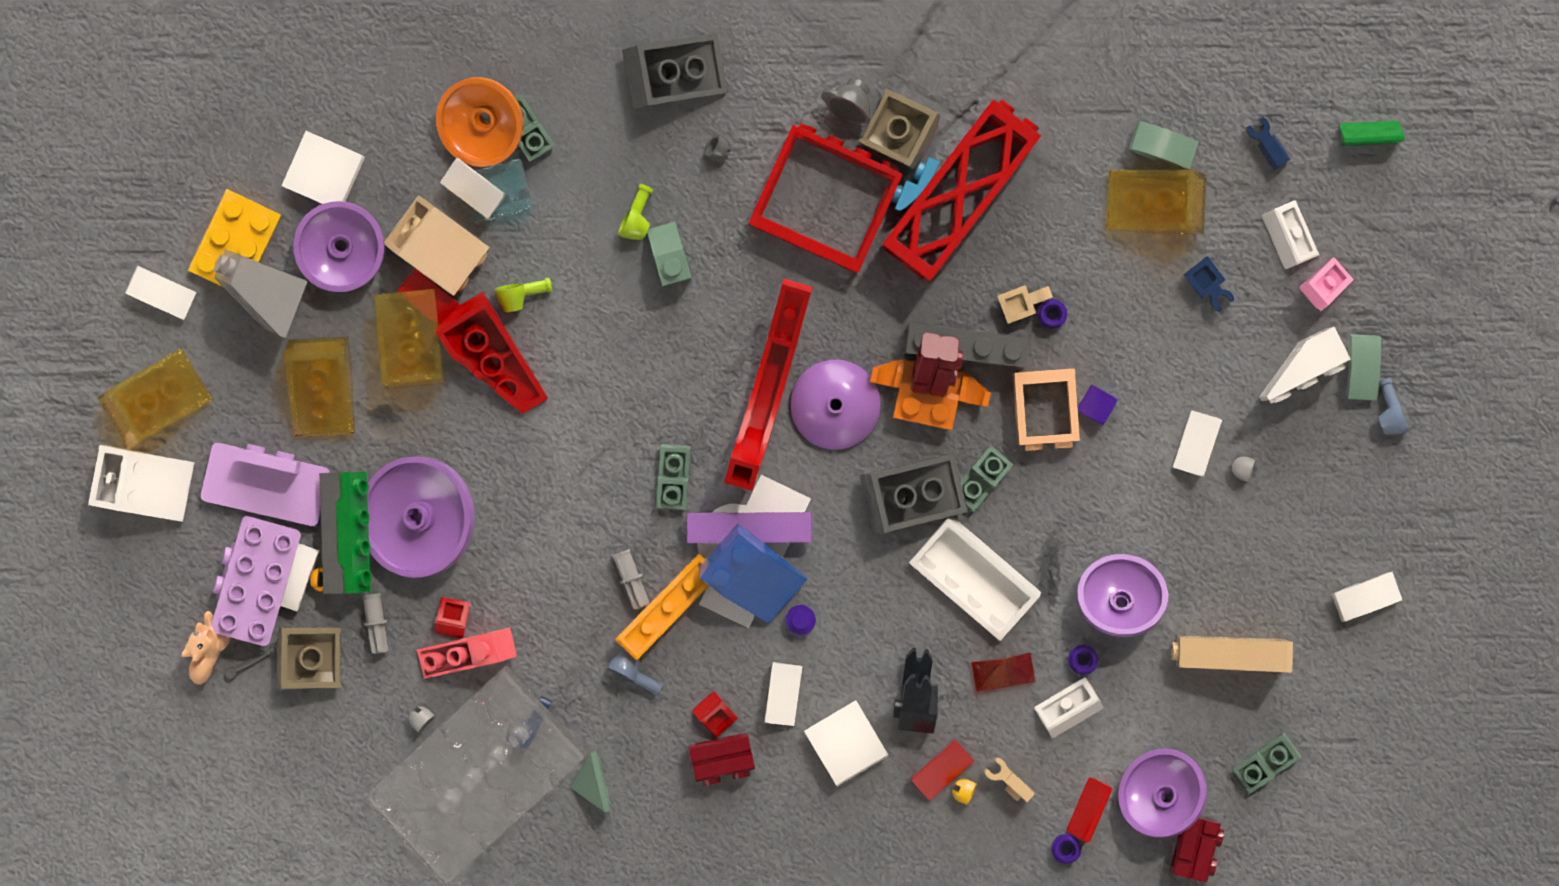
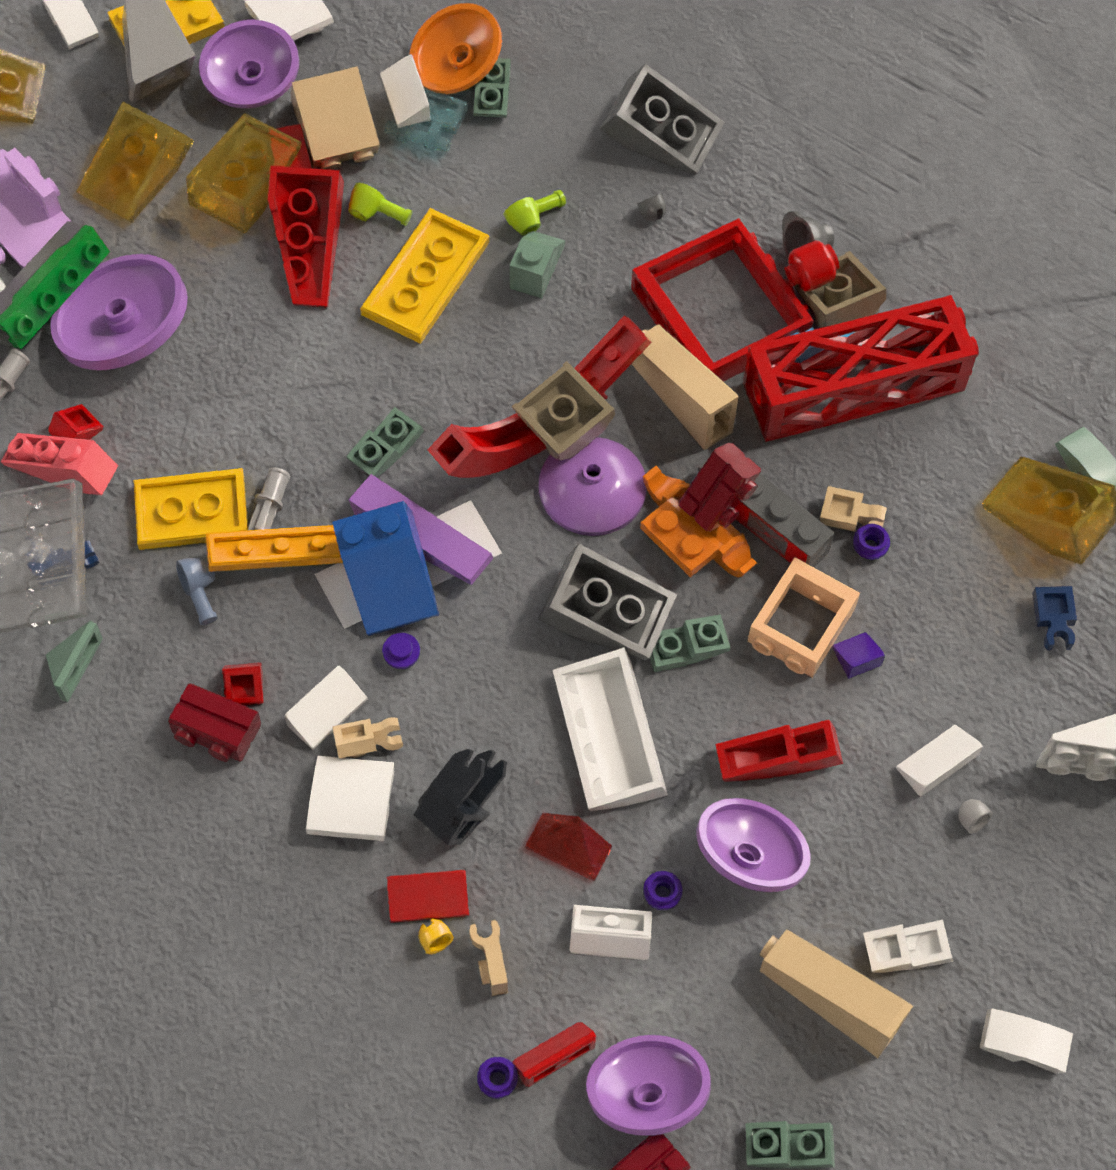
camera: 30 degrees right, 25 degrees down
(580, 619) = (188, 506): none -> yellow tile
(597, 322) = (425, 275): none -> yellow tile
(787, 379) = (565, 413): none -> dark tan slope
(821, 699) = (361, 737): none -> tan plate
(845, 287) = (688, 388): none -> tan slope
(875, 134) = (812, 266): none -> red head
(1094, 514) = (779, 752): none -> red slope
(1257, 586) = (908, 947): none -> white slope

